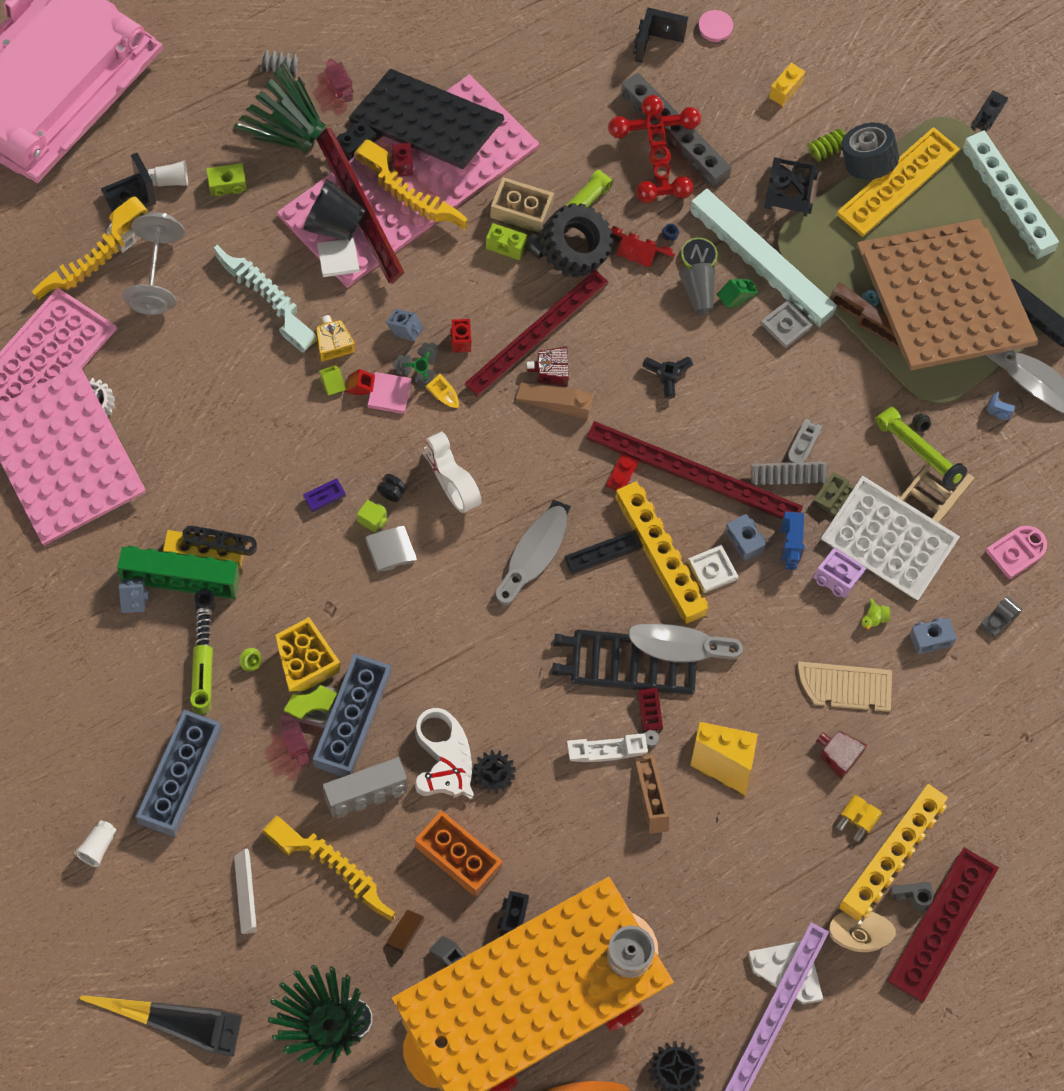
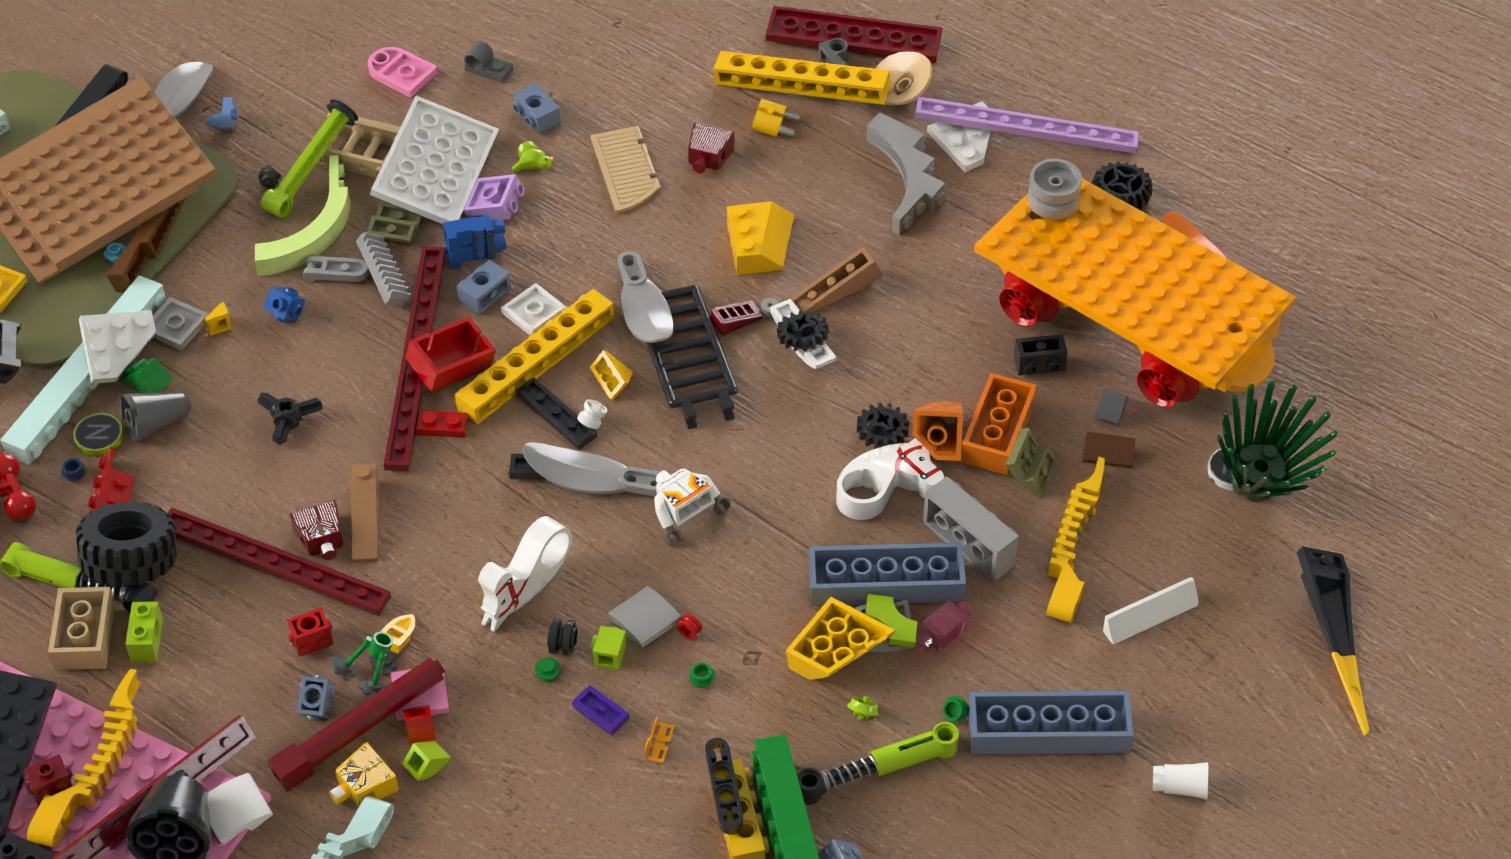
camera: 105 degrees left, 15 degrees down
(224, 718) = (955, 709): none -> green plate
(284, 525) = (660, 741): none -> light orange piece
(326, 569) = (702, 675): none -> green plate
(362, 308) = (296, 762): none -> dark red brick
(368, 573) = (689, 626): none -> red bush
(373, 474) = (547, 669): none -> green plate
(411, 861) = (1031, 462): none -> olive slope
(469, 806) = (940, 429): none -> orange slope
(477, 603) = (684, 496): none -> white torso
(589, 574) = (592, 414): none -> white wheel
(611, 737) = (802, 330): none -> black gear
(623, 602) = (611, 374): none -> yellow slope
(674, 489) = (450, 354): none -> red piece
(732, 900) = (906, 150): none -> light grey arch
(772, 274) = (114, 342): none -> white plate
(775, 396) = (284, 303): none -> blue brick
(779, 353) = (218, 320): none -> yellow slope
(851, 447) = (315, 238): none -> yellowish green arch

